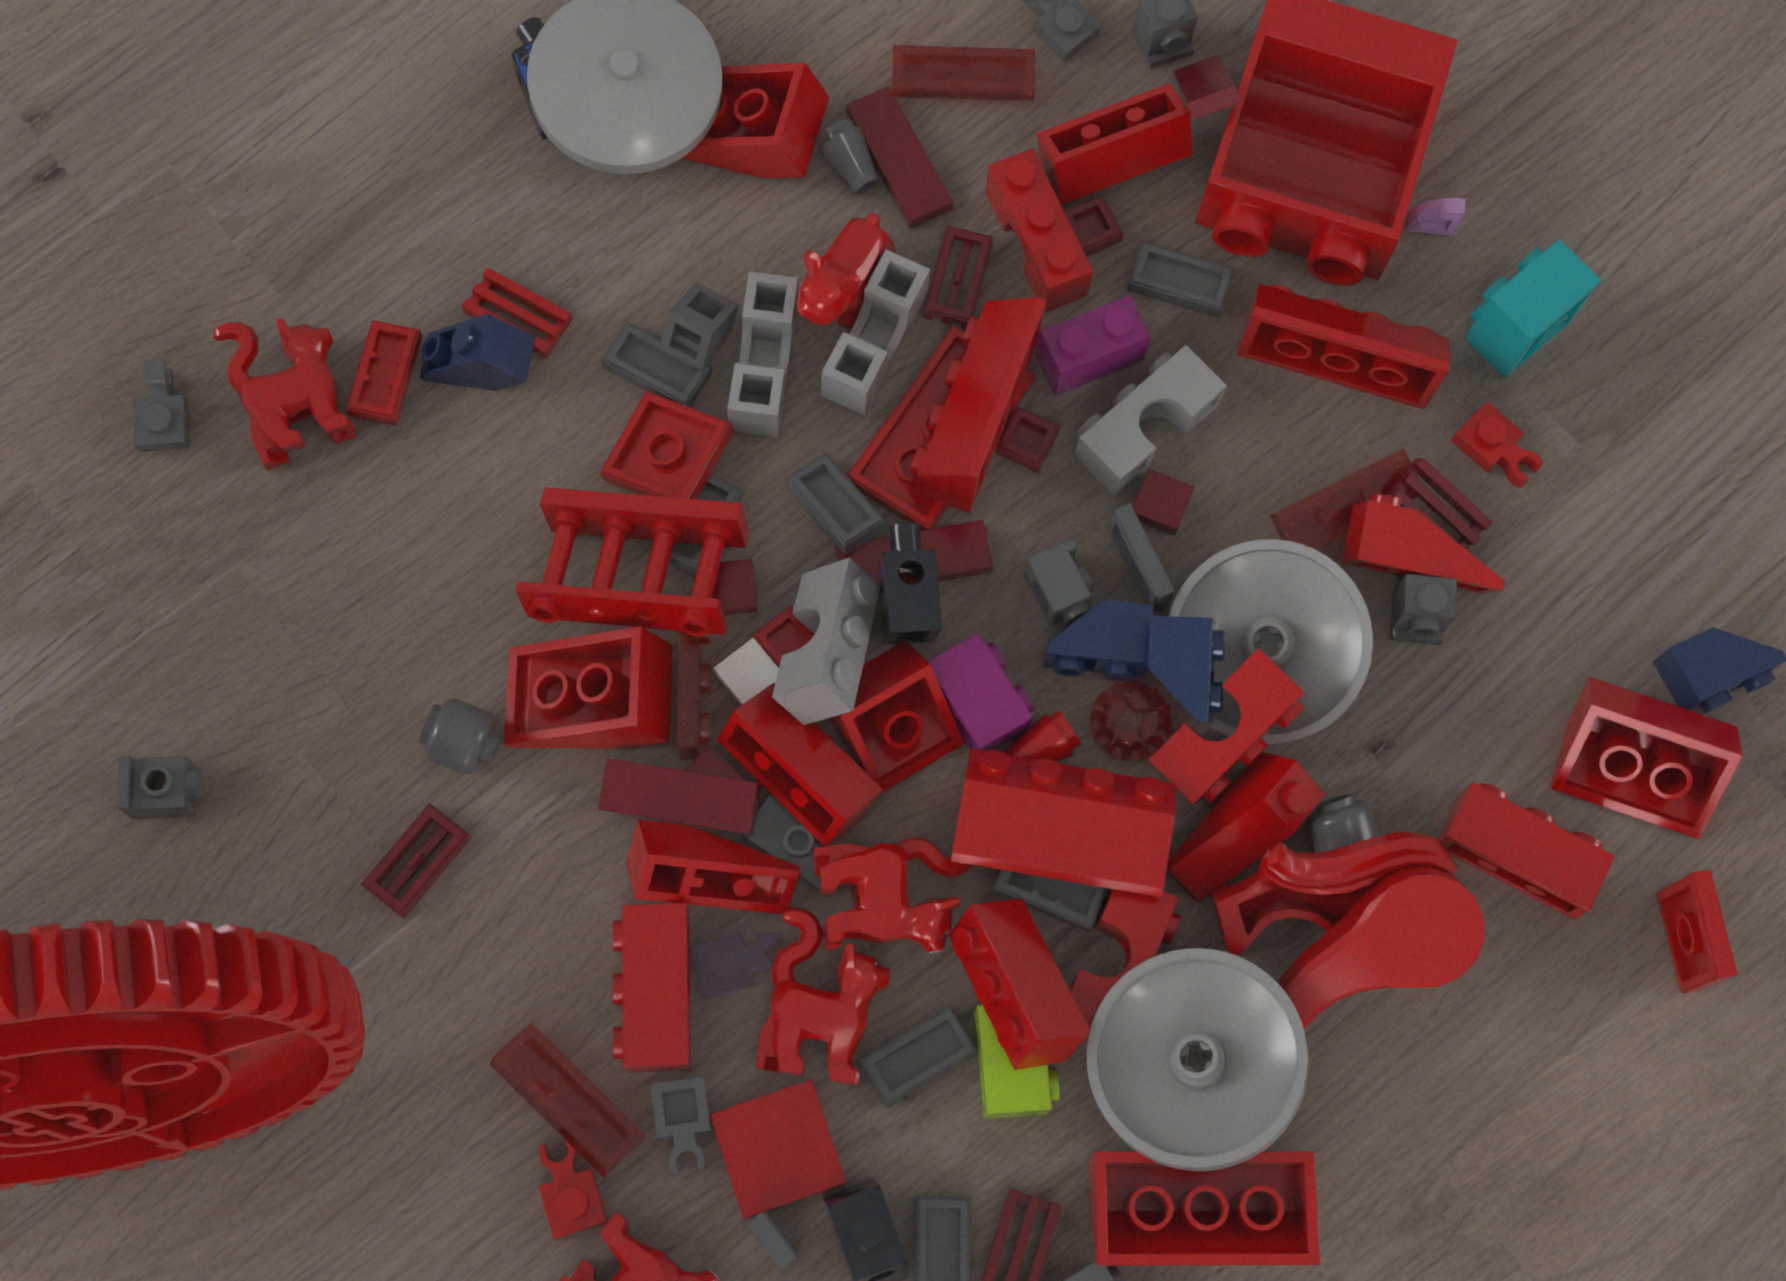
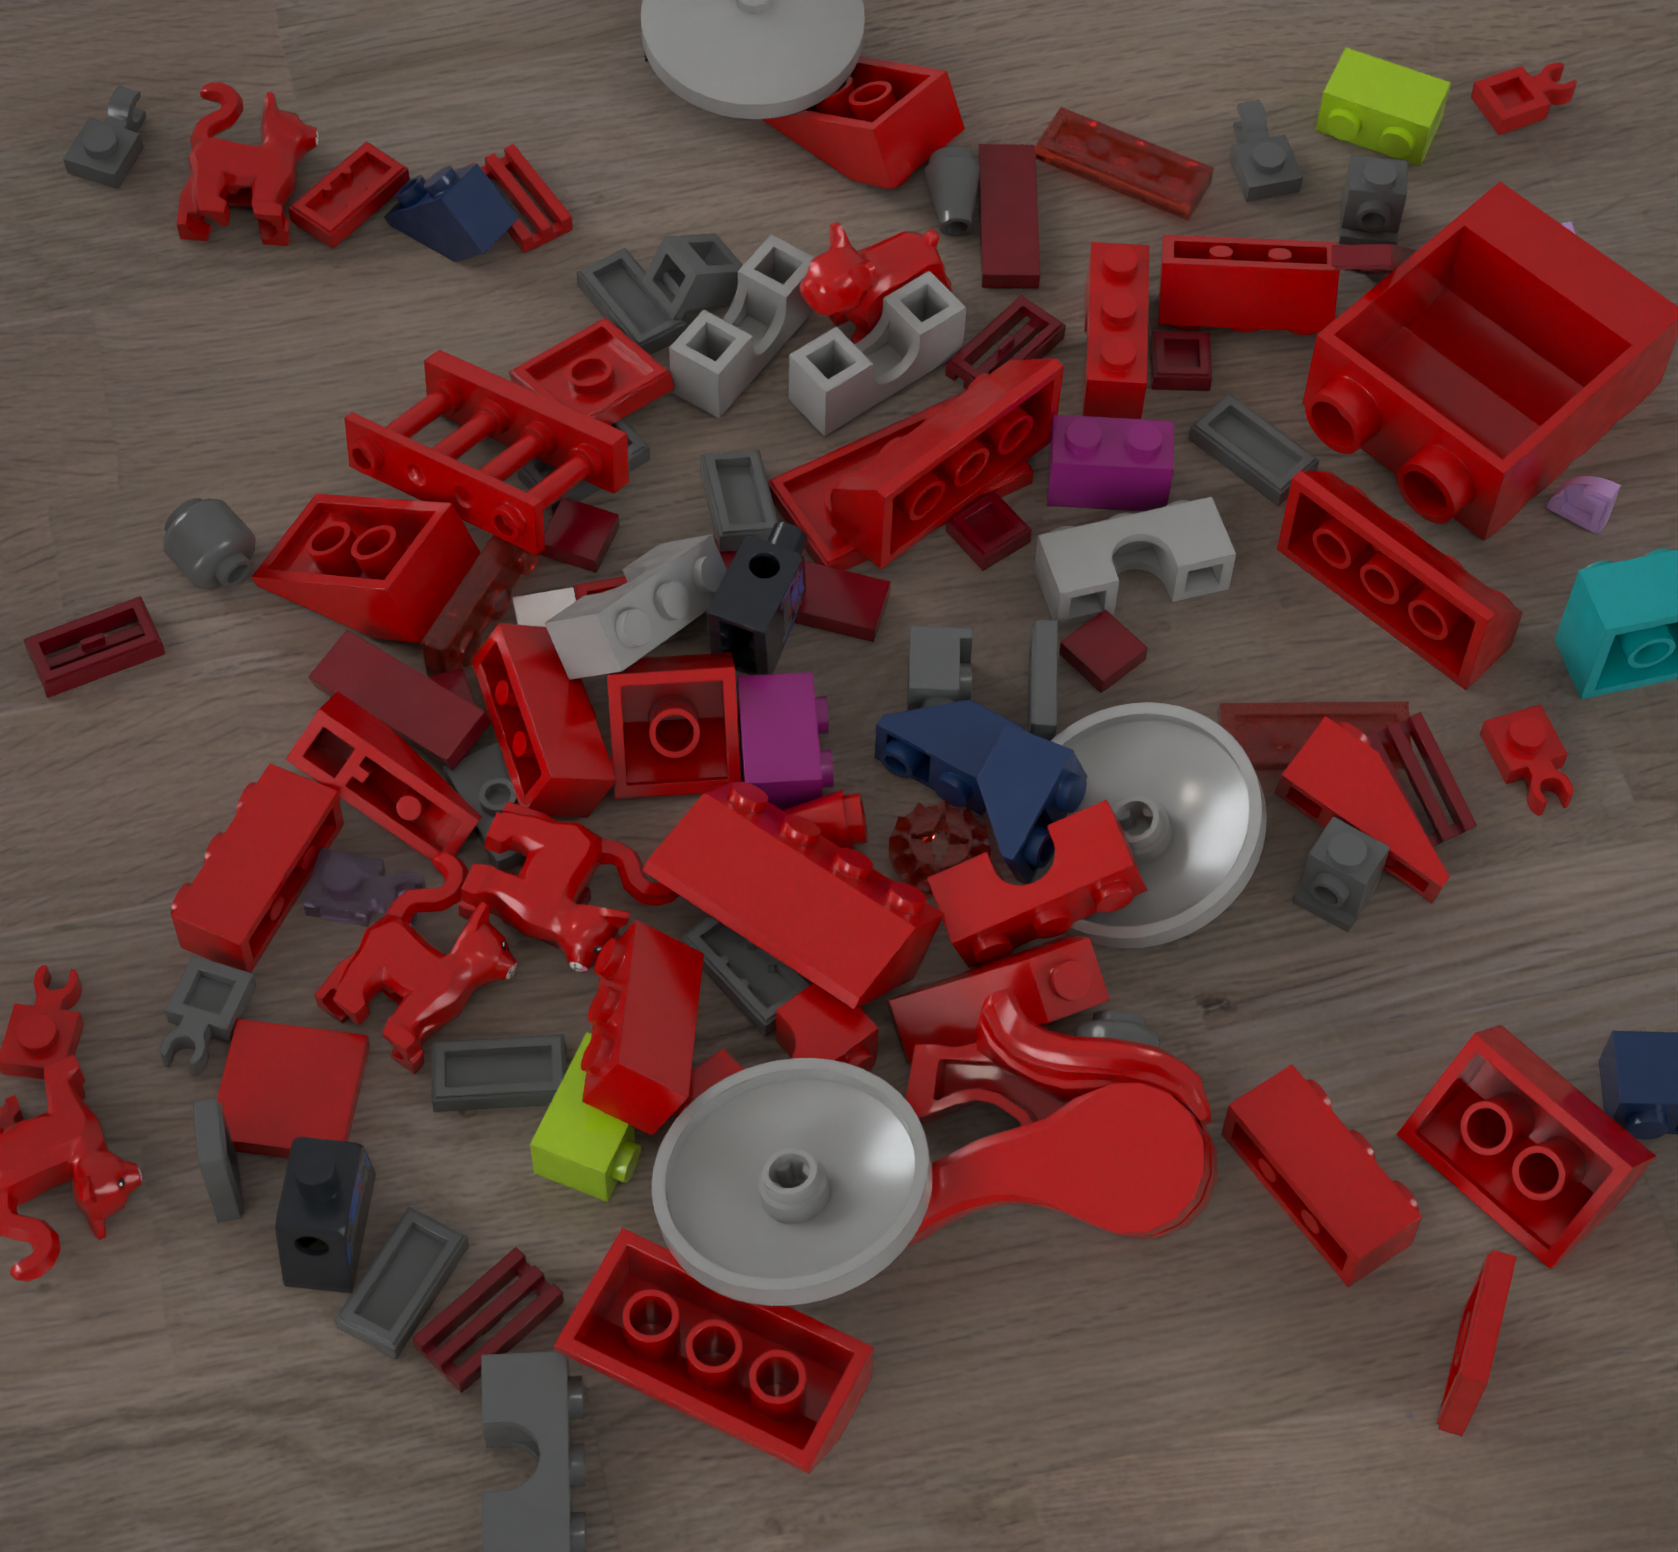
camera: 30 degrees right, 15 degrees down
(567, 1099) = (98, 934): clear red plate -> none

